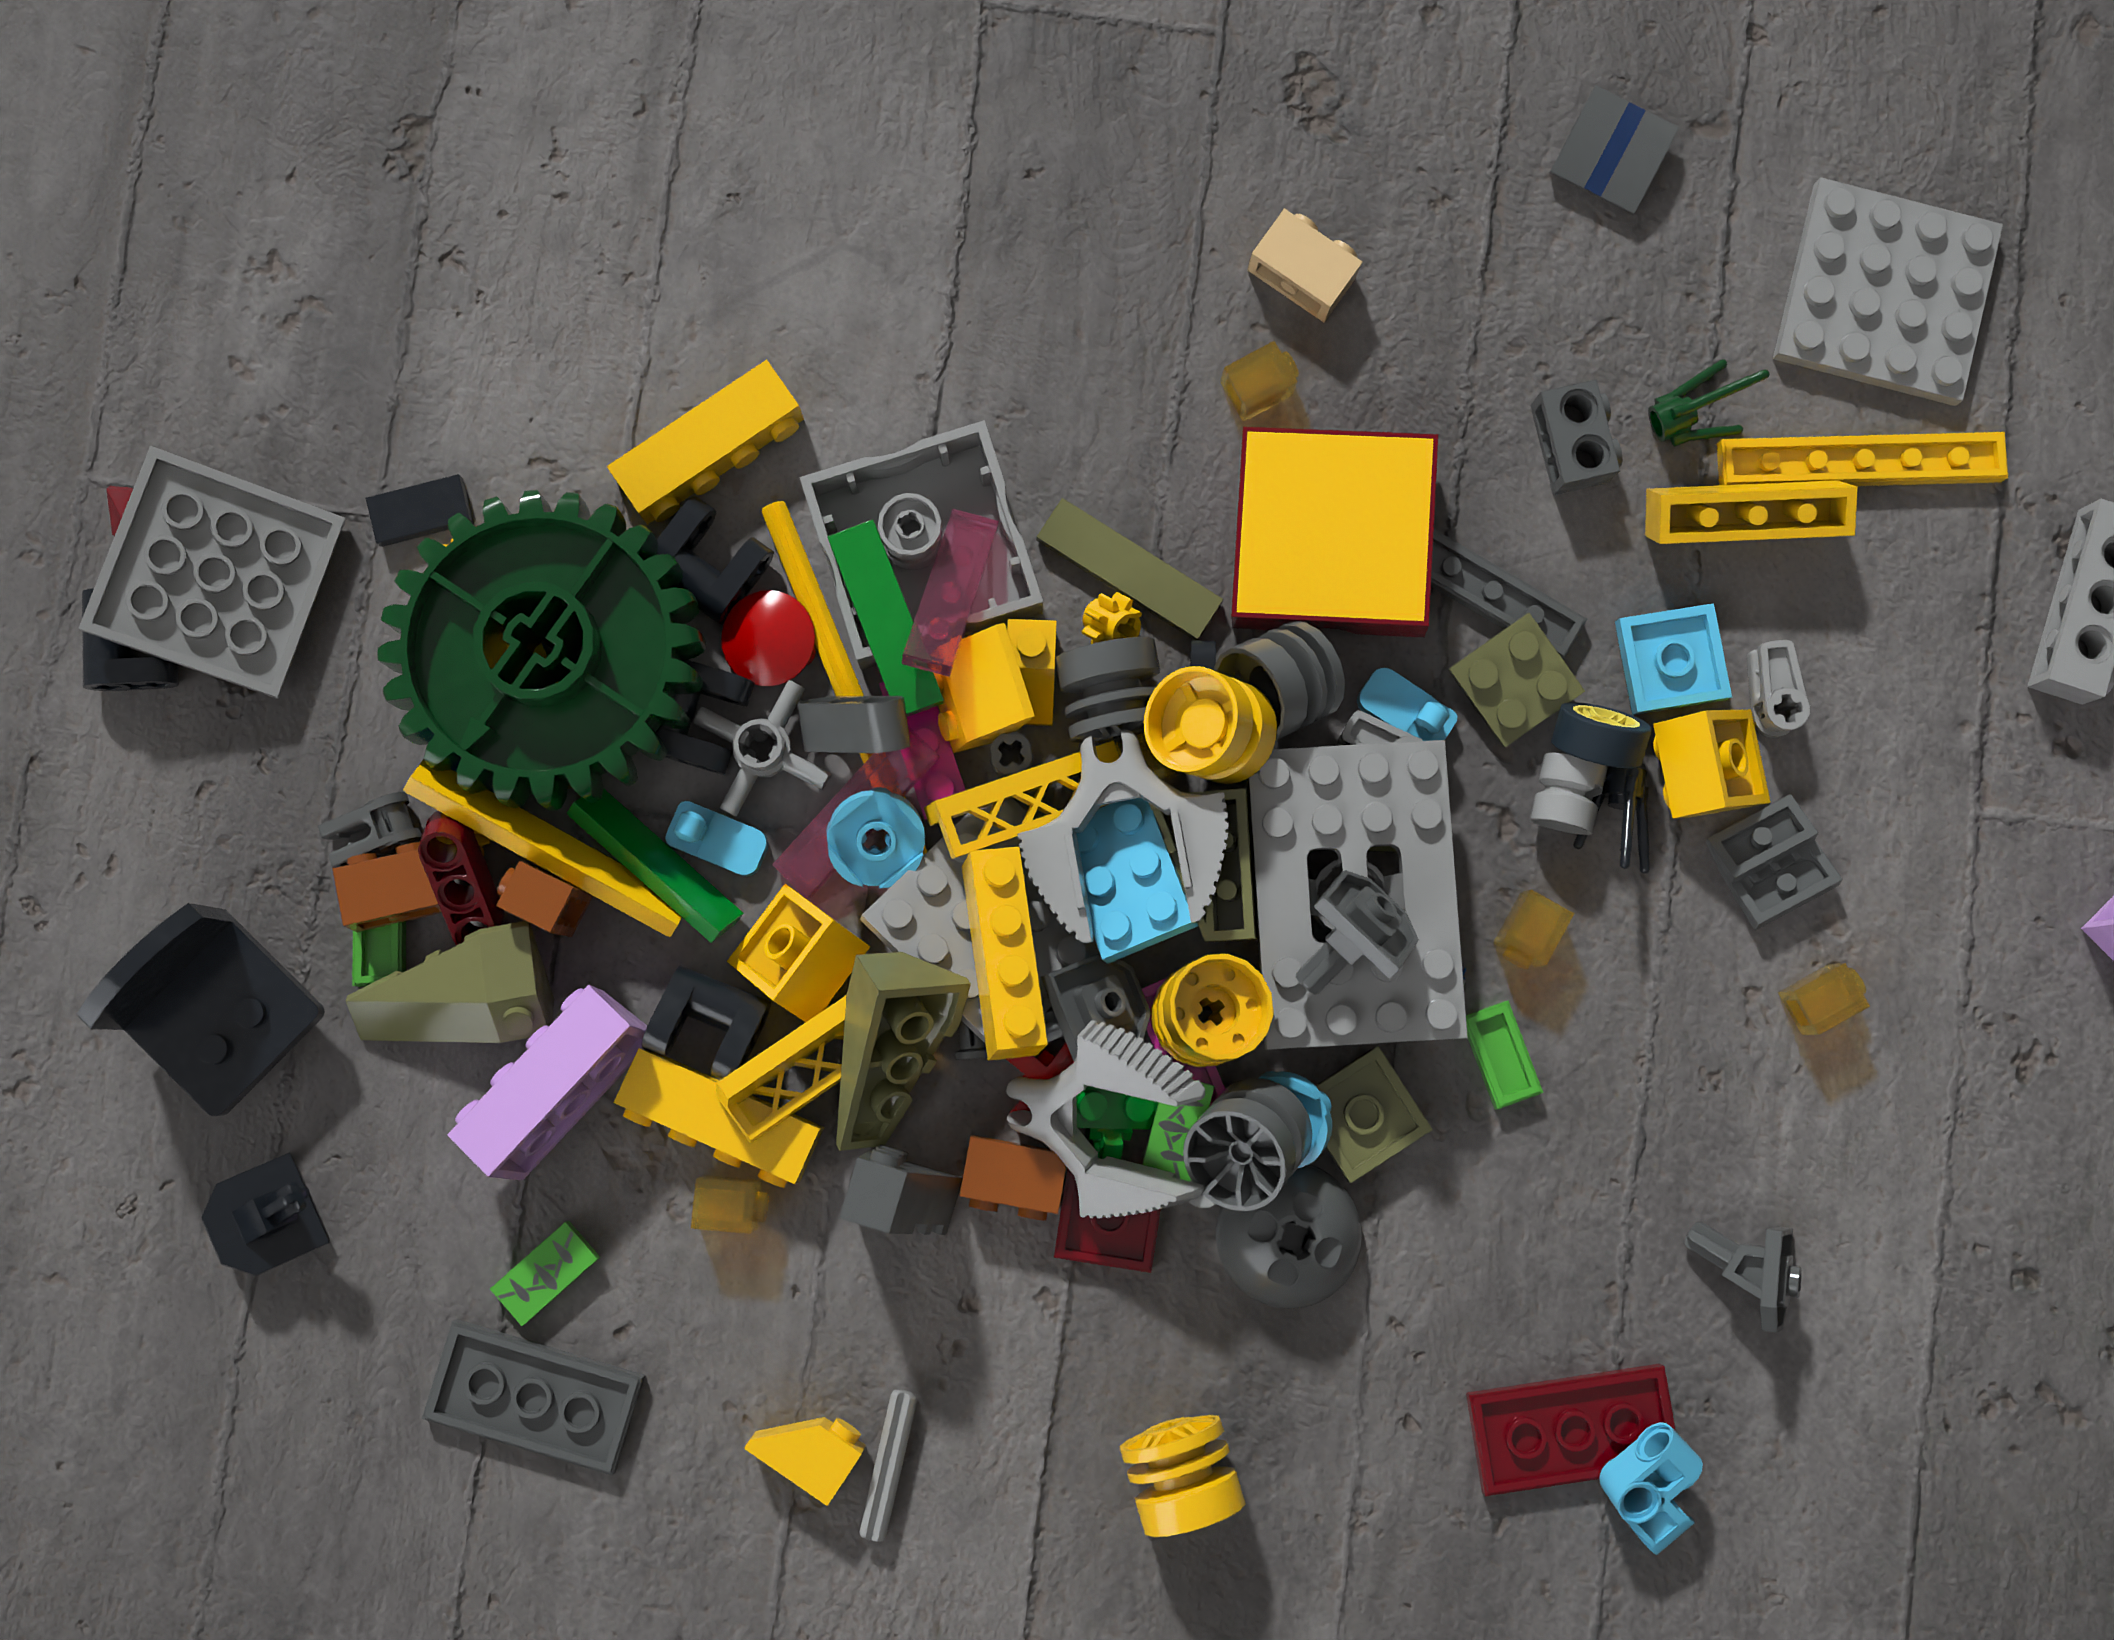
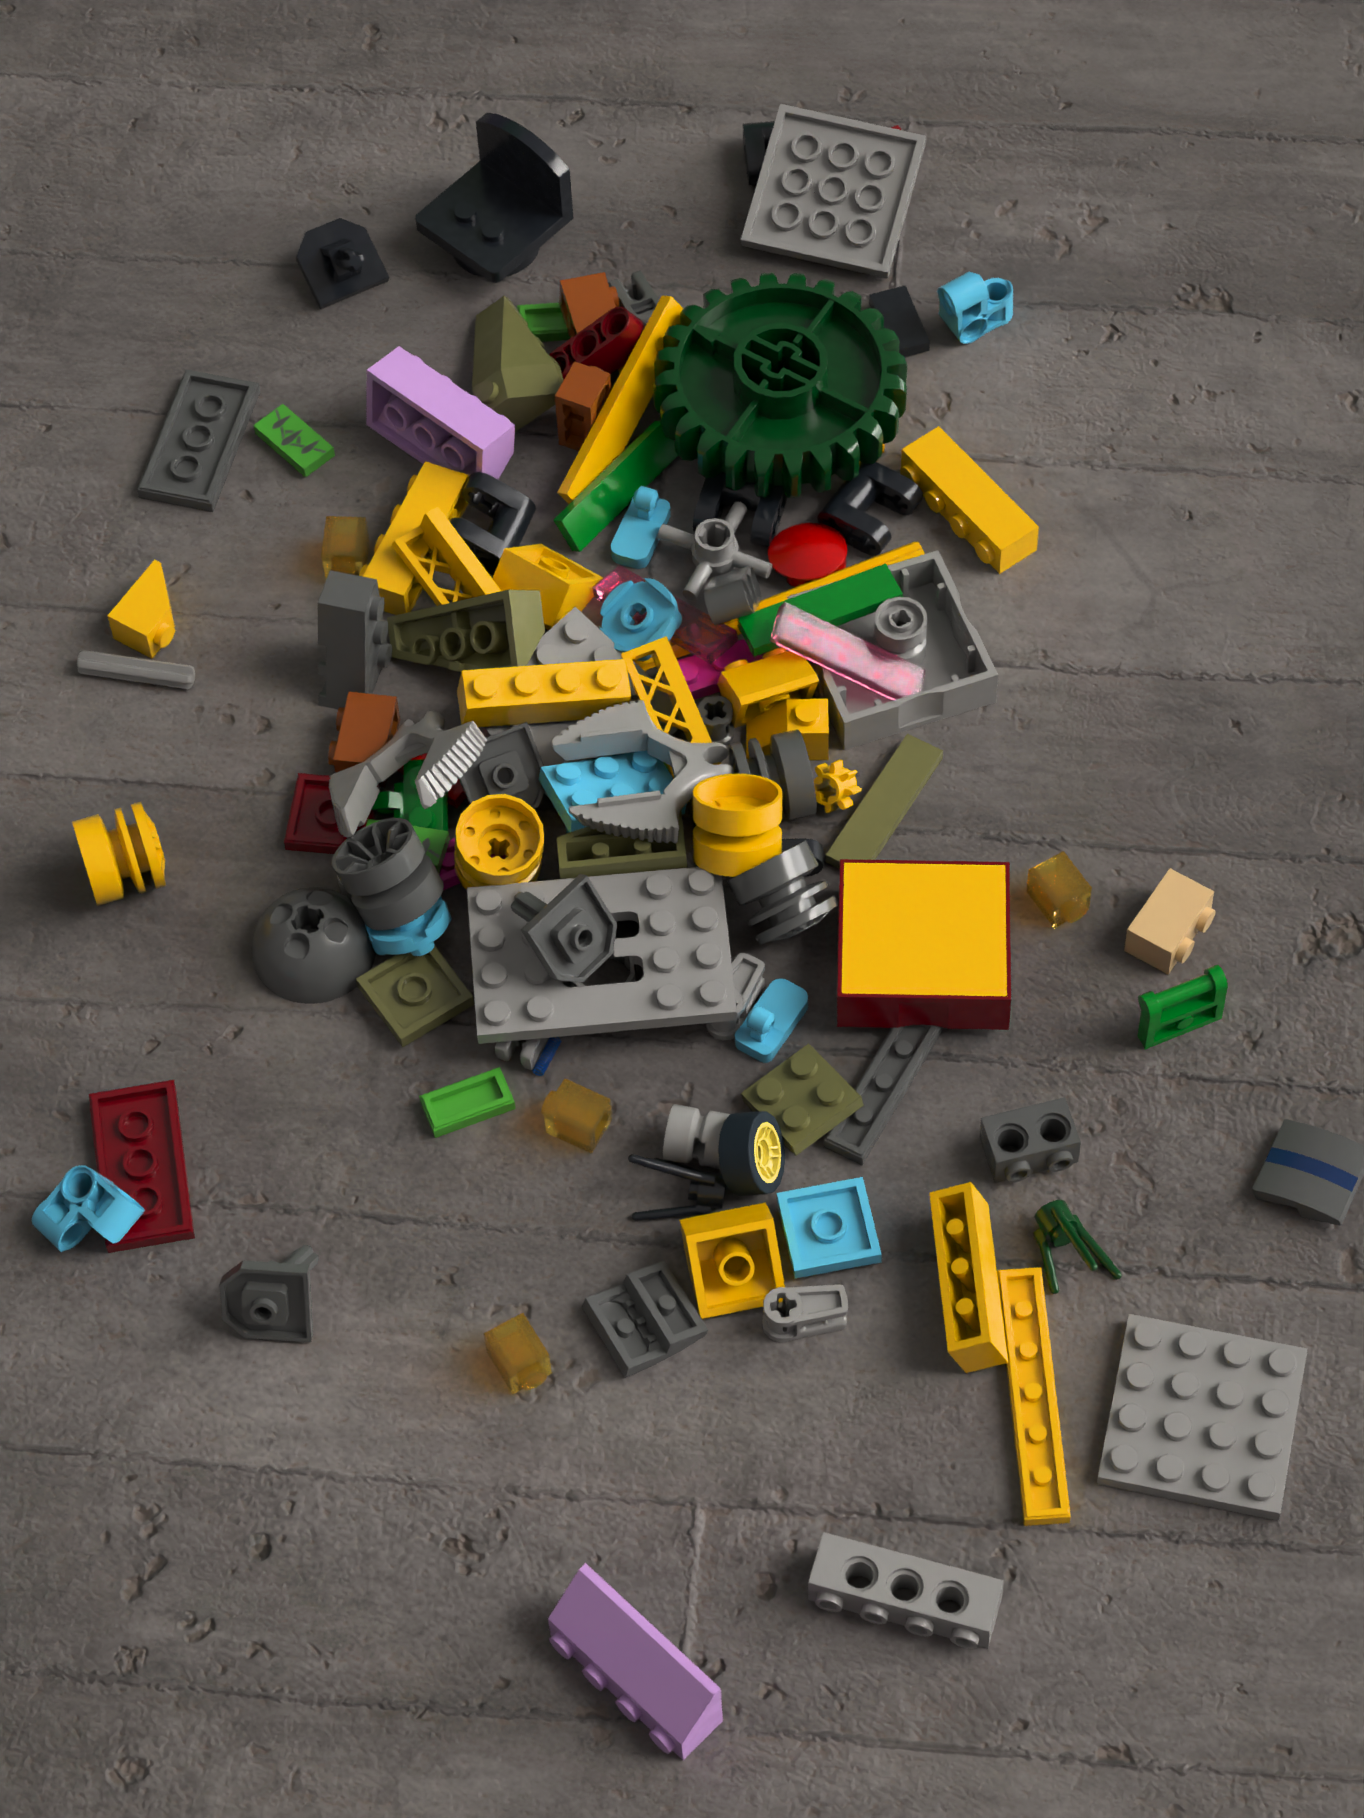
camera: 95 degrees right, 25 degrees down
(413, 411) = (975, 306): none -> medium azure piece
(1418, 246) = (1182, 1007): none -> green plate

